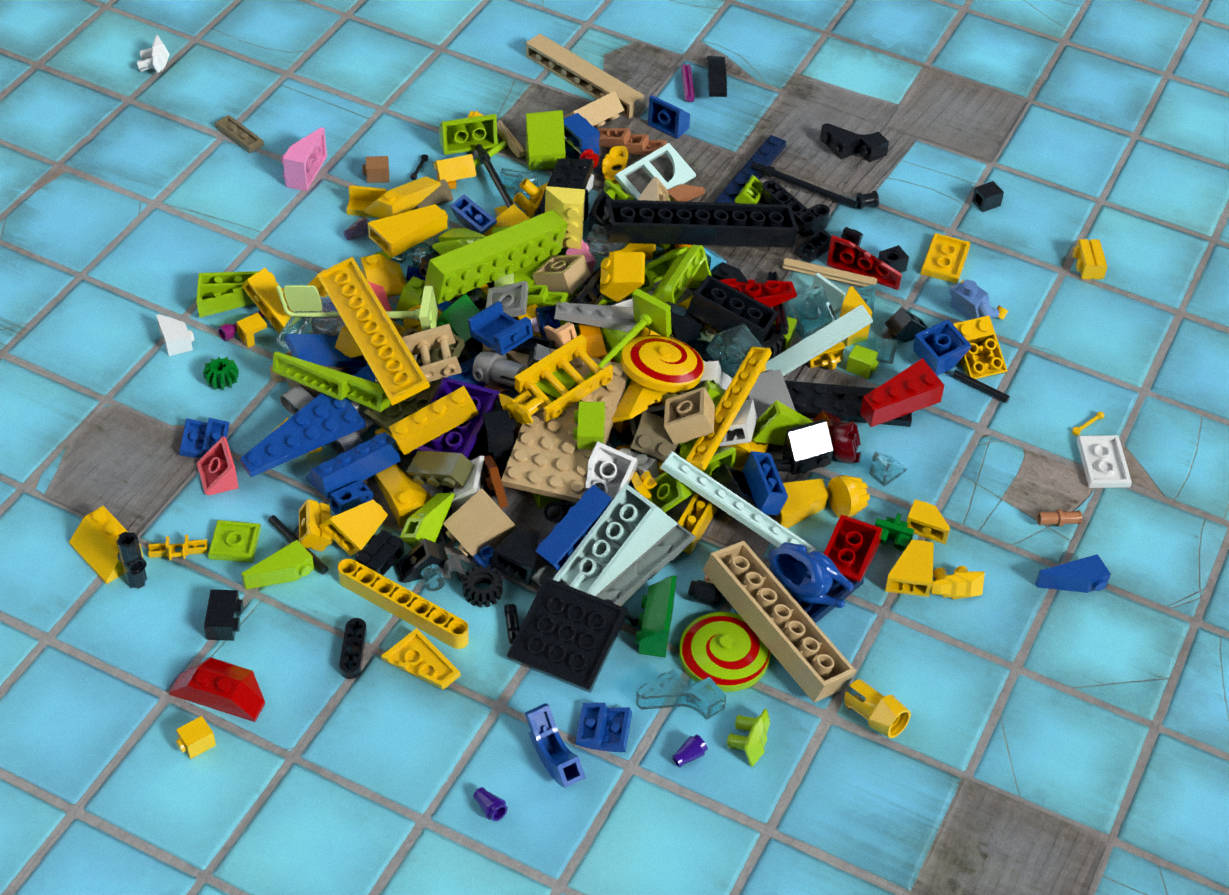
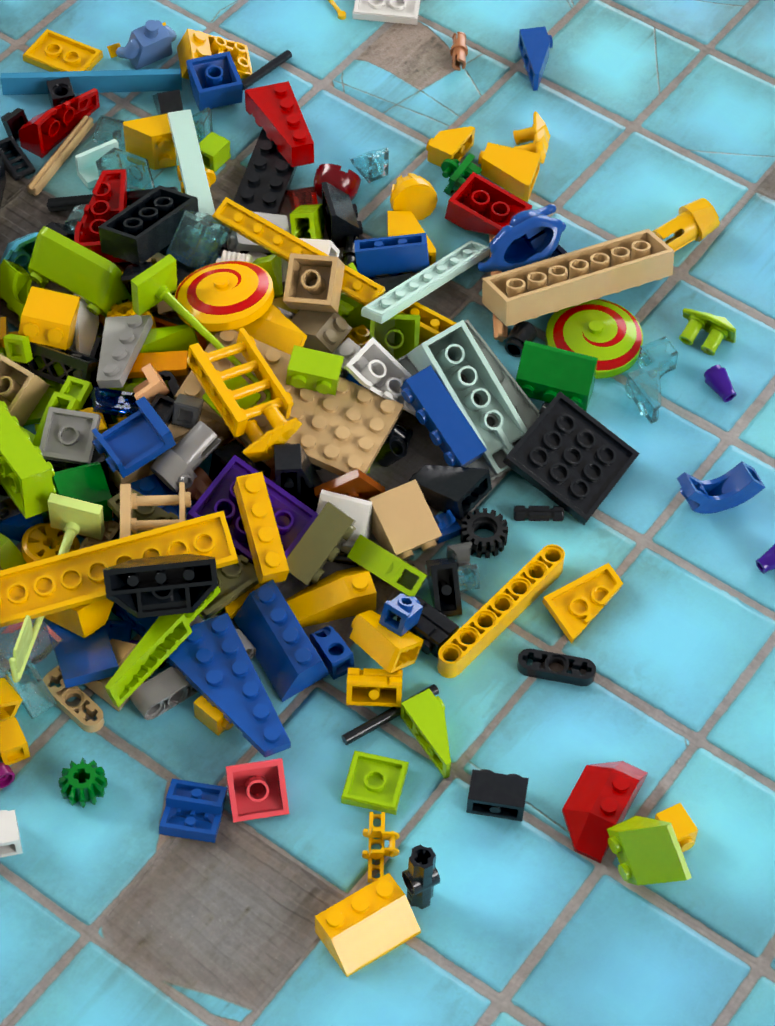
camera: 80 degrees left, 5 degrees up
(158, 705) = (647, 851): none -> lime slope
(355, 352) = (161, 584): none -> black wedge
(373, 523) = (406, 608): none -> blue brick
(593, 266) = (18, 348): none -> lime tile
(604, 727) = (683, 450): blue slope -> none
(916, 274) = (104, 81): none -> dark azure tile

